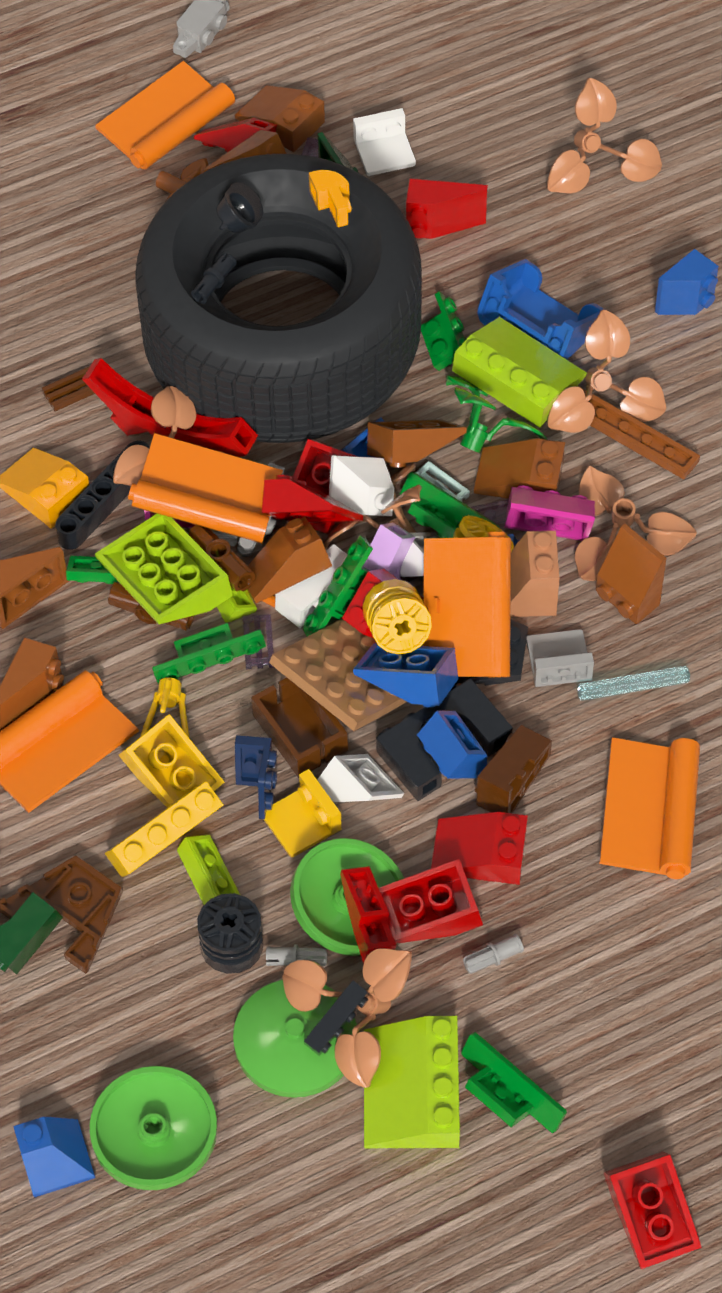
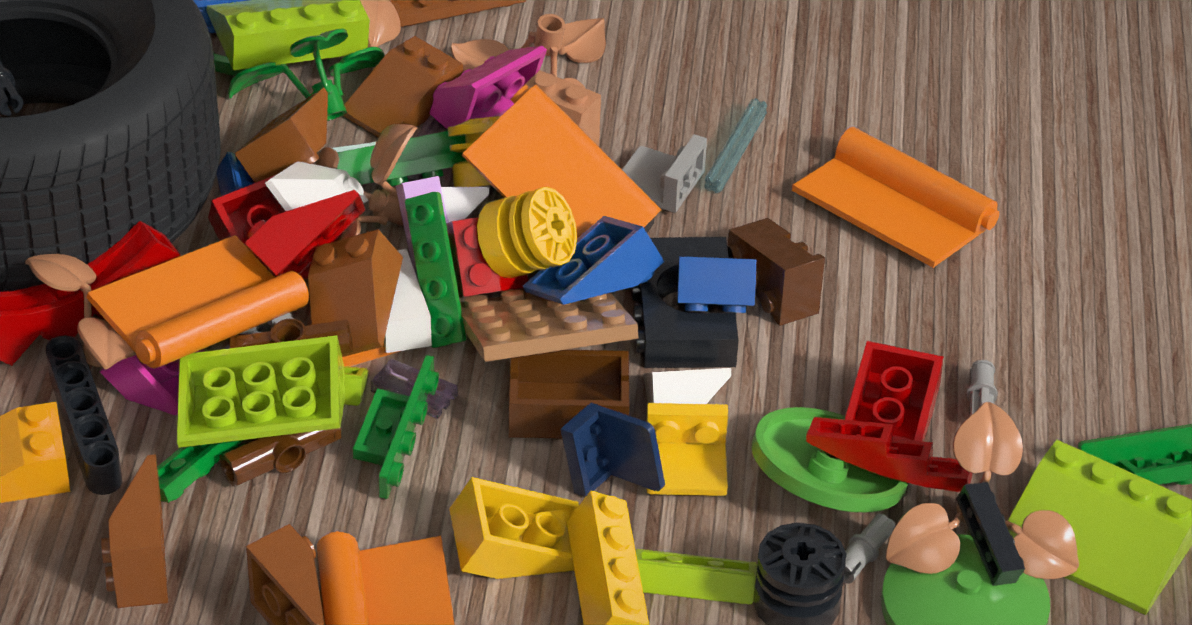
camera: 60 degrees left, 15 degrees down
(168, 696) = (419, 490): yellow plant -> none
(485, 843) = (835, 333): red slope -> none
(632, 575) = (627, 62): dark orange slope -> none

